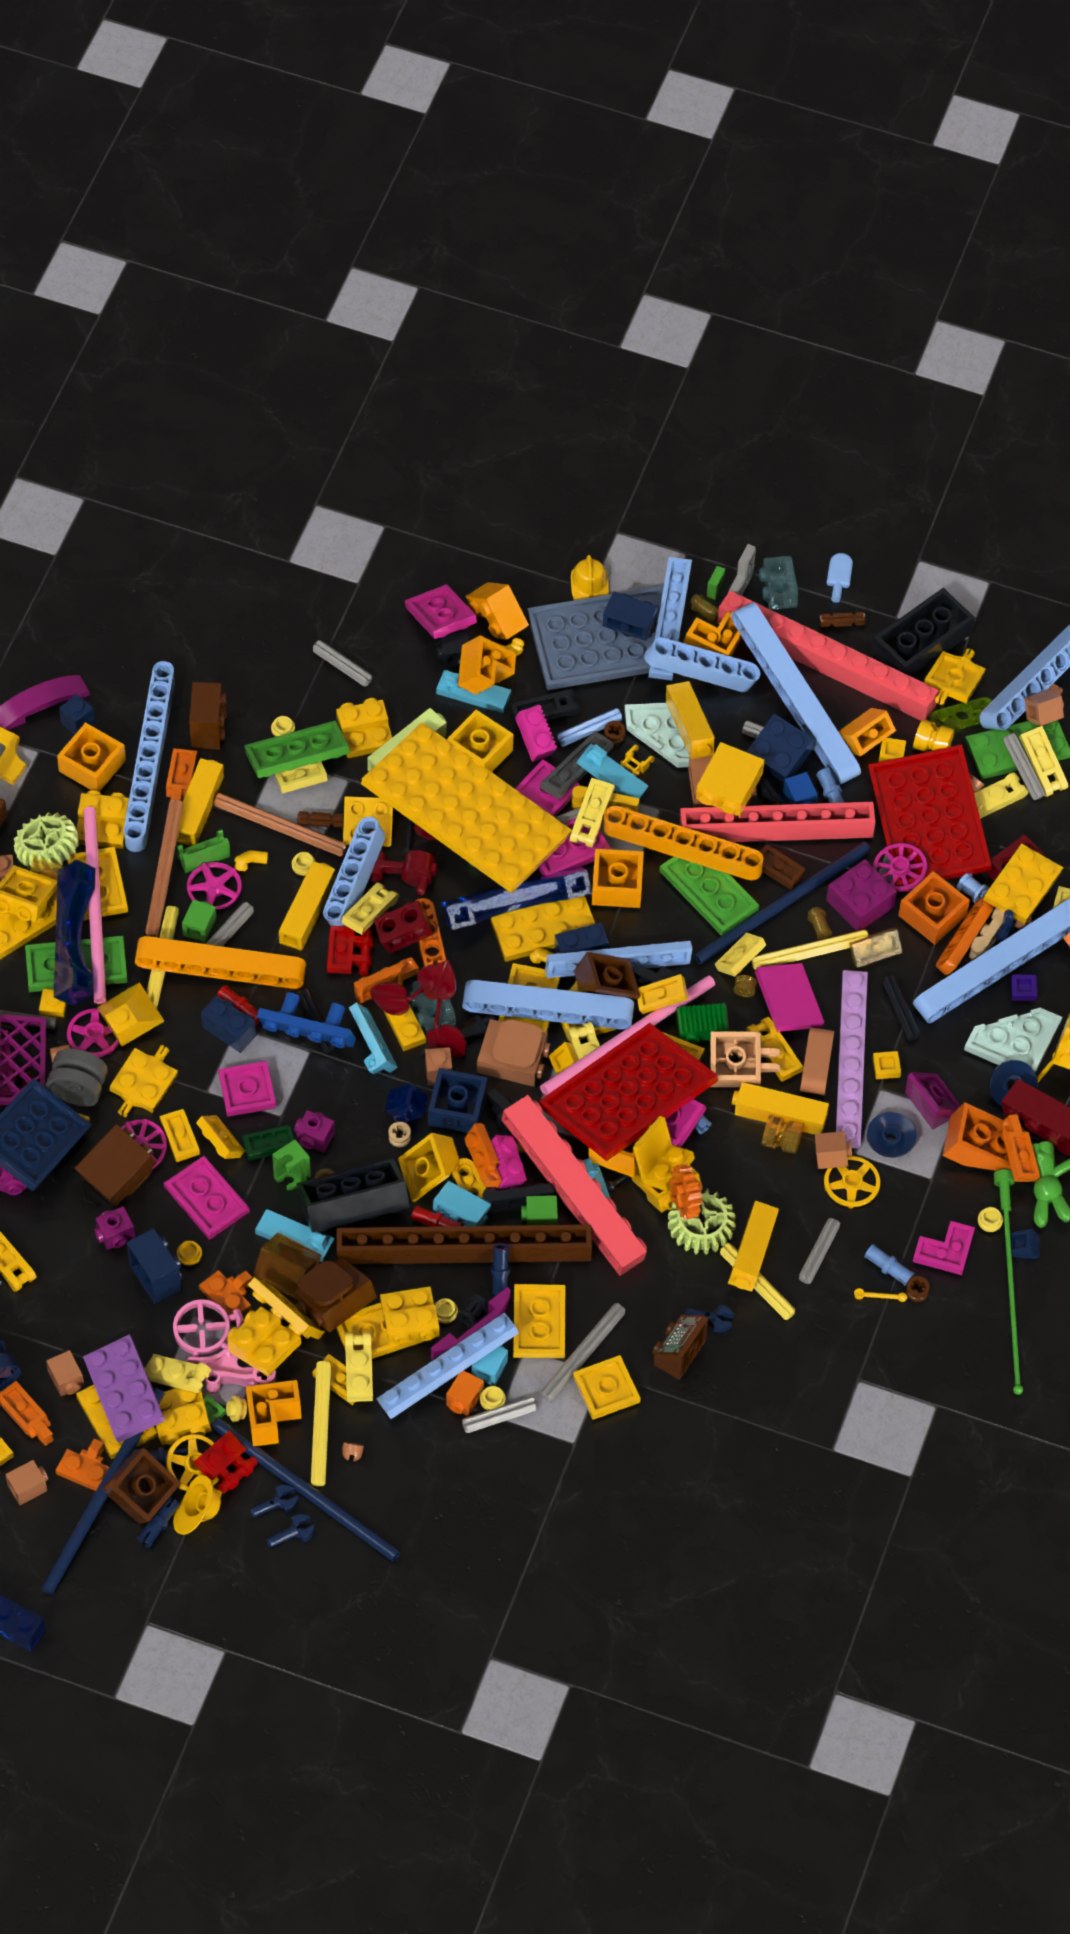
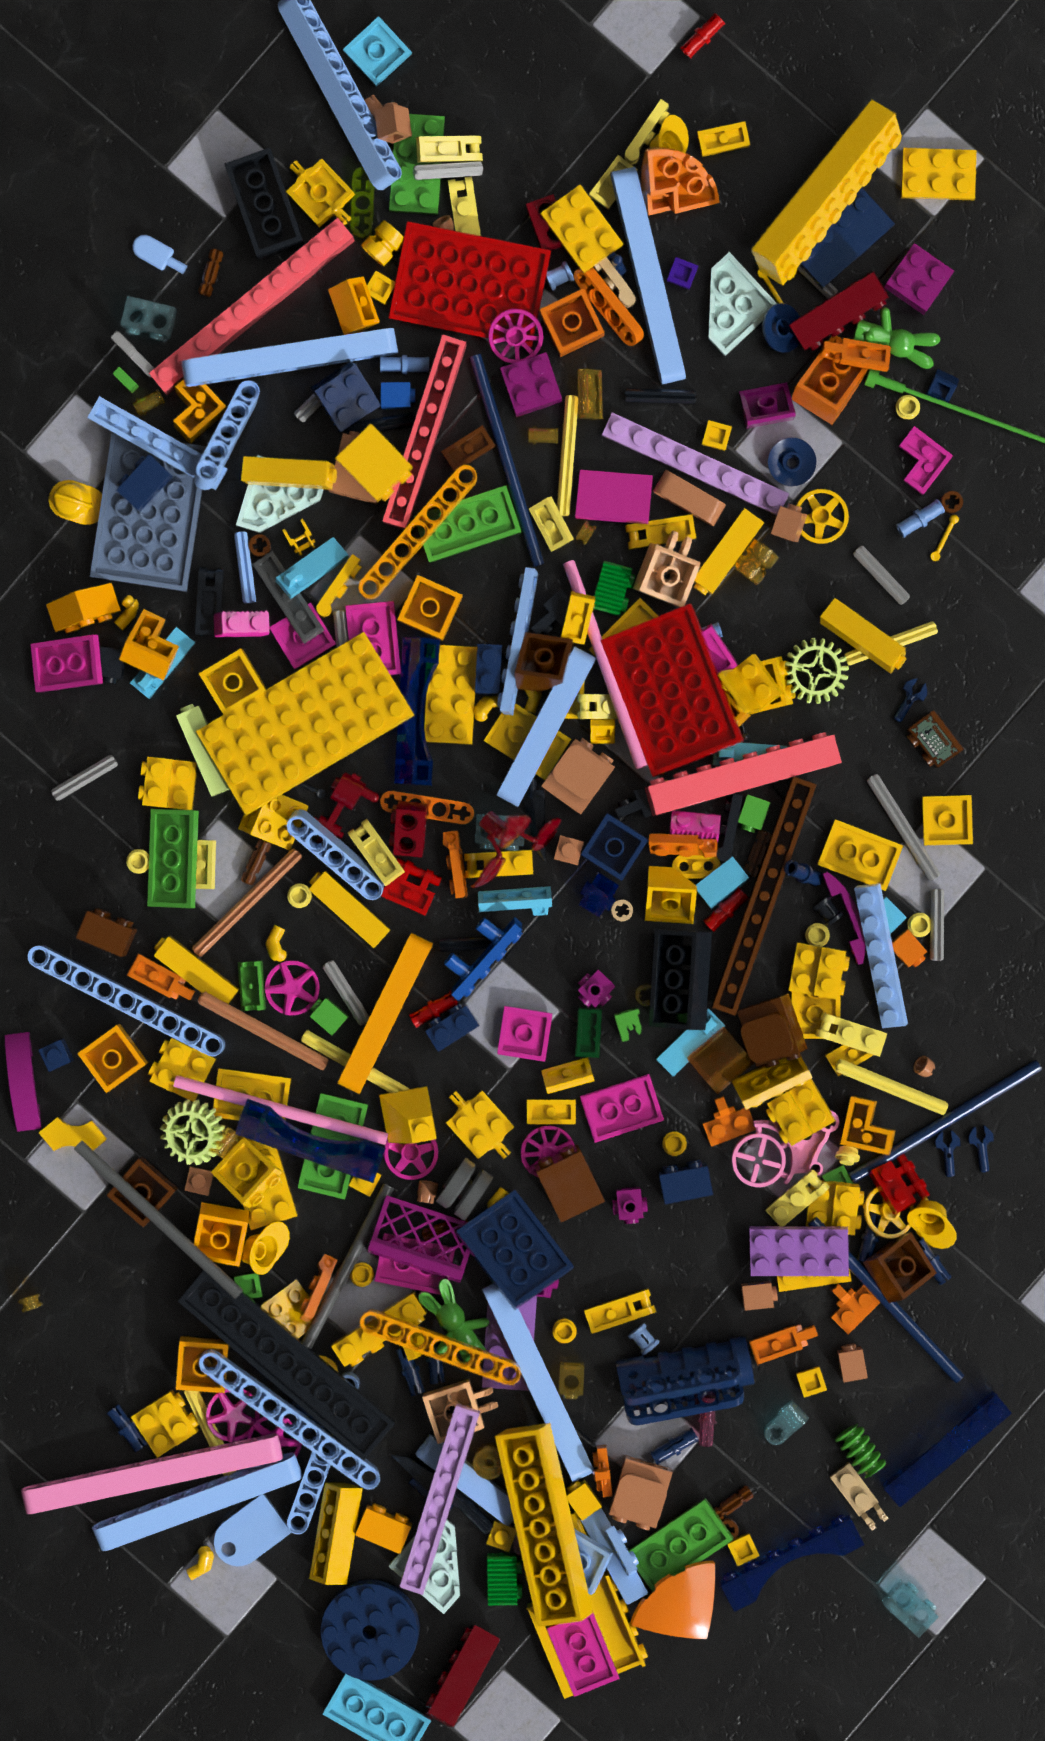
camera: 65 degrees left, 30 degrees up
(592, 812) = (353, 605): light yellow plate -> none
(685, 1191) = (800, 680): orange gear -> none

